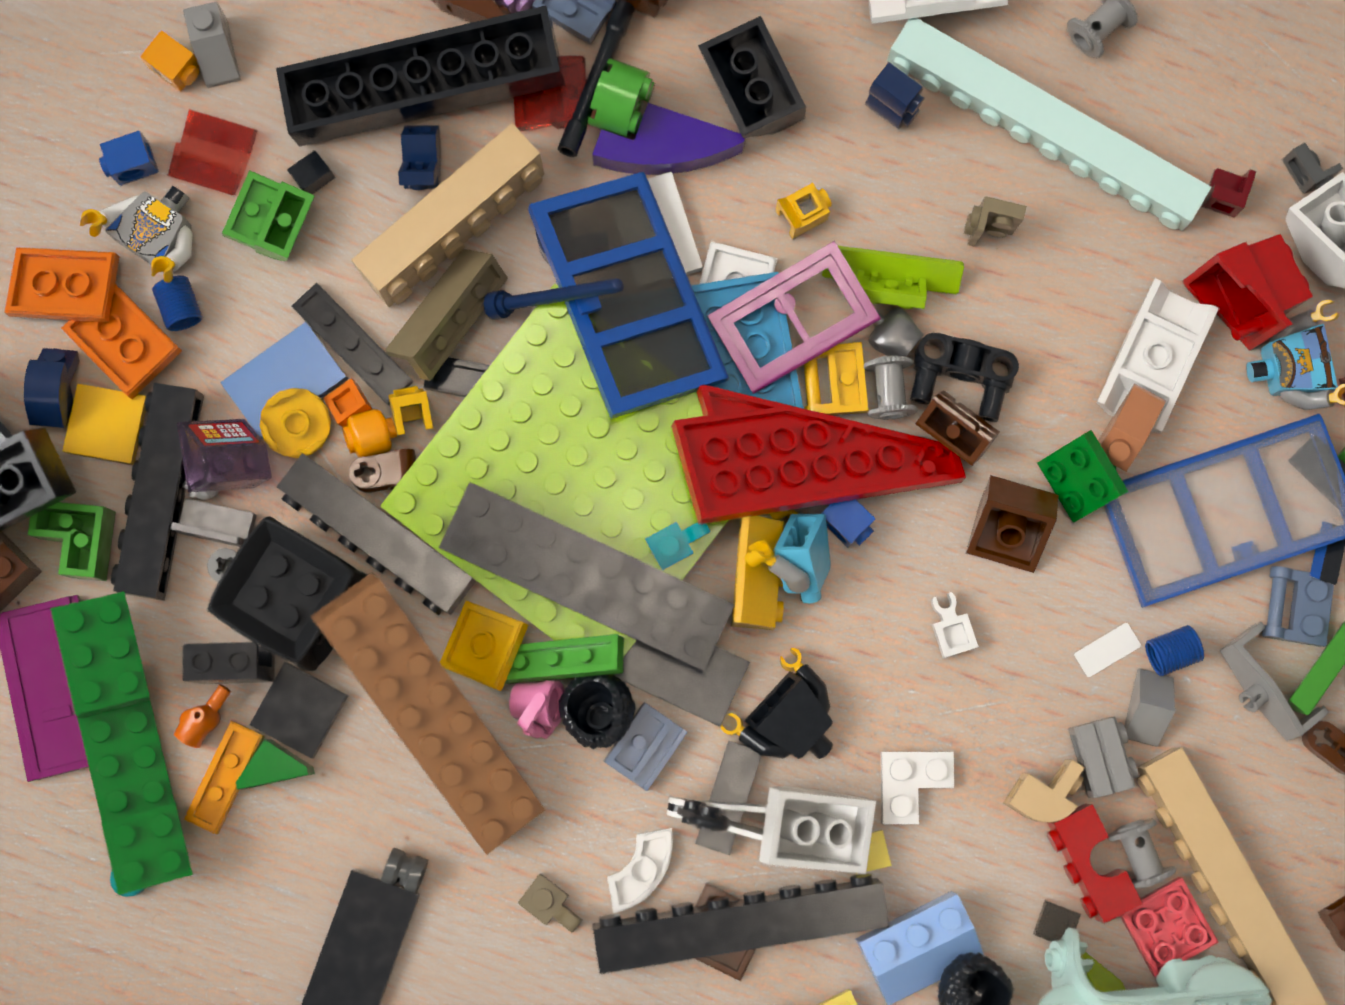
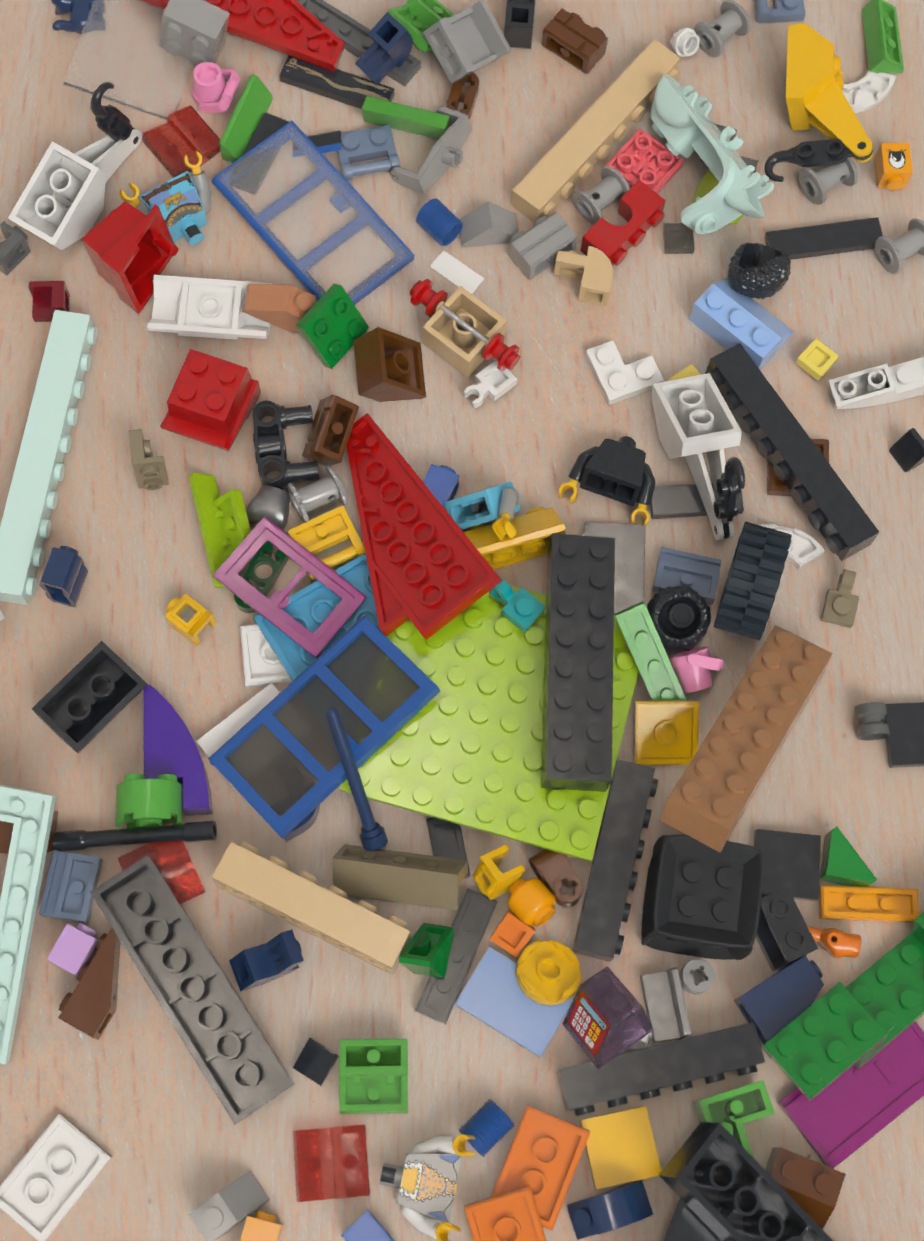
camera: 115 degrees left, 10 degrees down
(160, 633) = (781, 998): none -> dark blue slope
(363, 312) = (428, 950): none -> green slope
(598, 801) = (753, 580): none -> black wheel
(805, 291) = (267, 583): none -> dark green beam
(1025, 619) = (463, 329): none -> tan brick
(1037, 311) = (210, 400): none -> red piece

